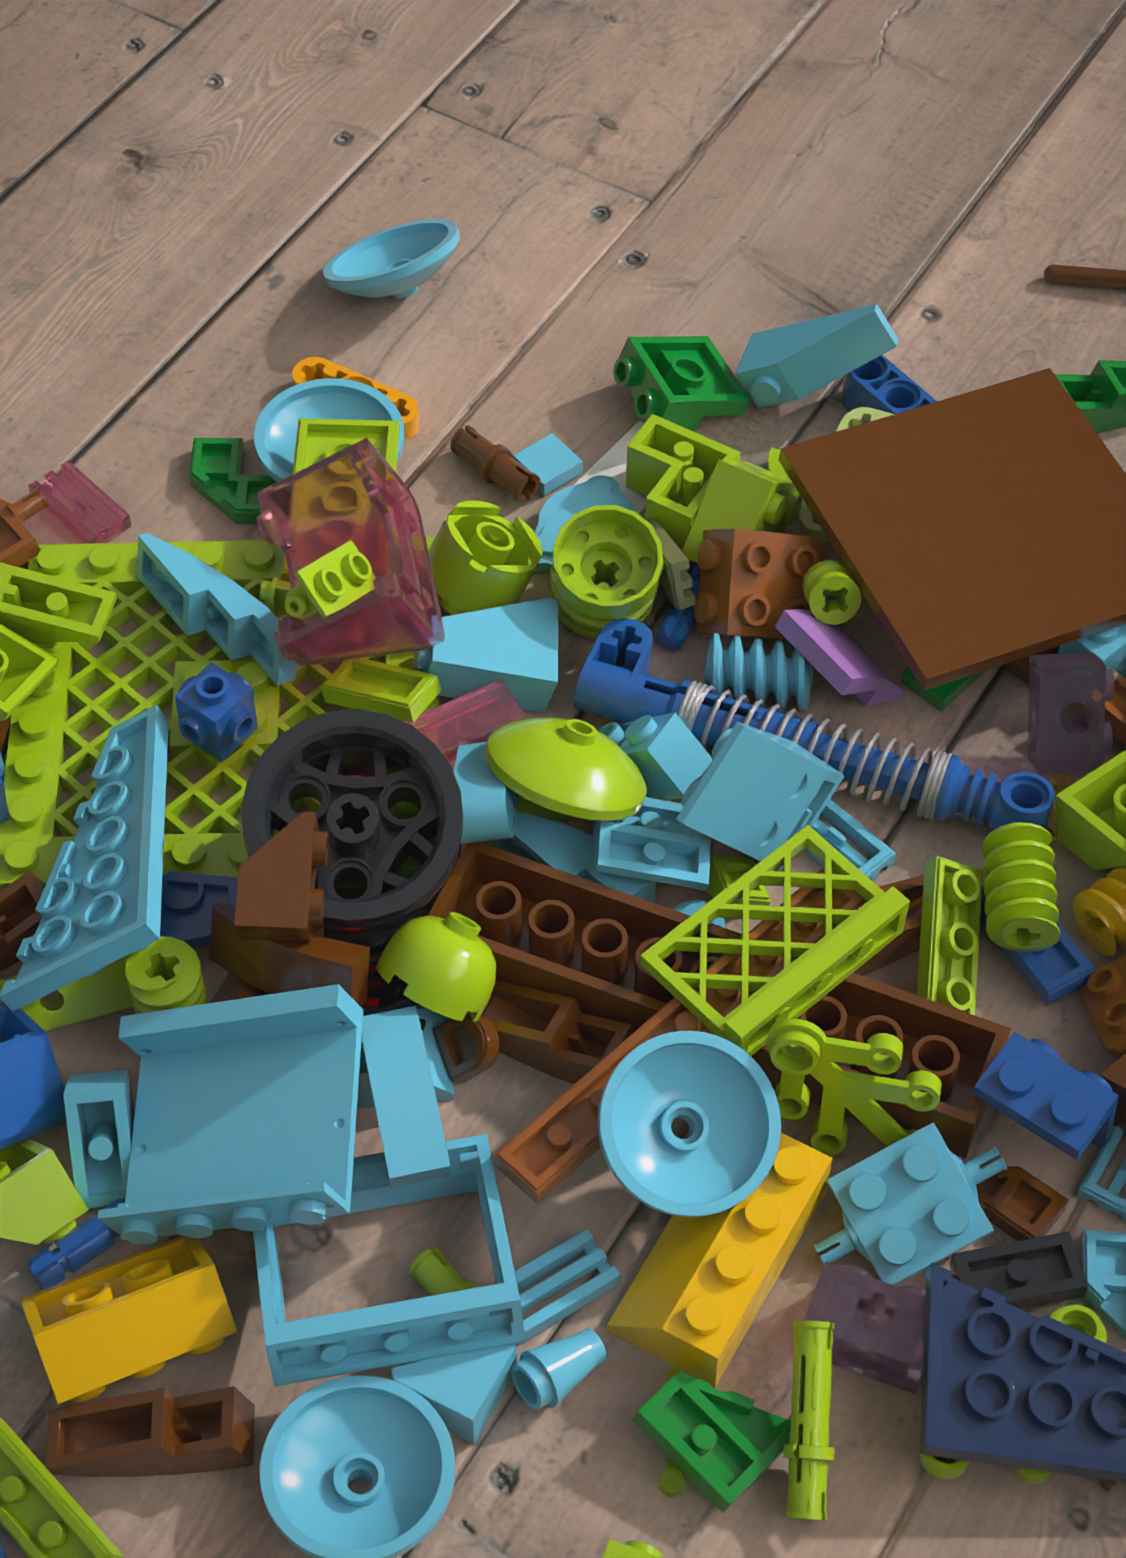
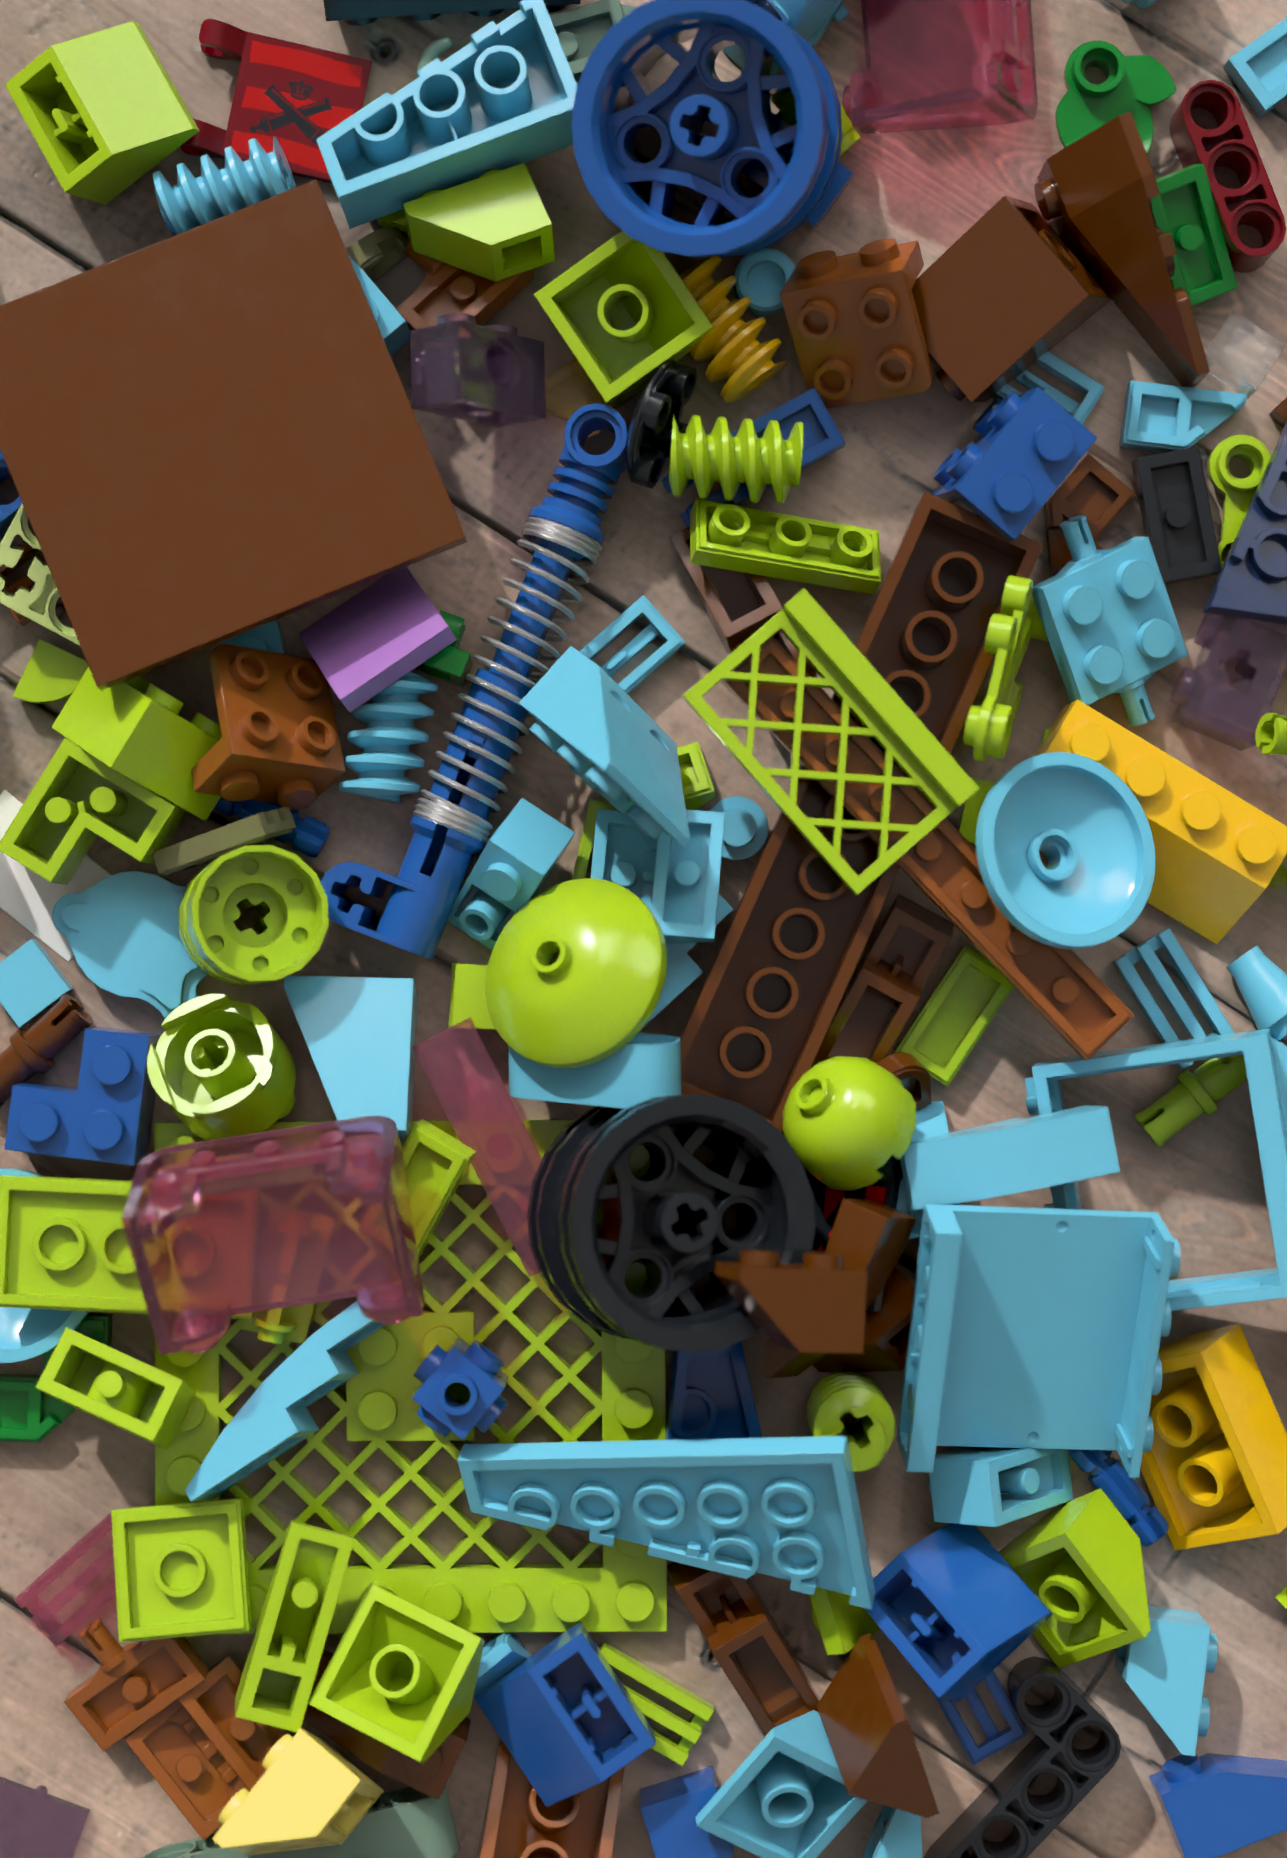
camera: 90 degrees left, 35 degrees up
(85, 542) = (181, 1570): none -> lime tile
(228, 494) = (116, 1388): none -> lime brick
(330, 583) = (326, 1254): lime hinge -> none
(444, 478) = (100, 1119): none -> blue brick
(514, 1091) = (955, 1015): none -> lime tile
(828, 580) = (302, 640): lime wheel -> none
(837, 707) = (450, 663): none -> green tile
(1073, 835) = (653, 421): none -> black dish

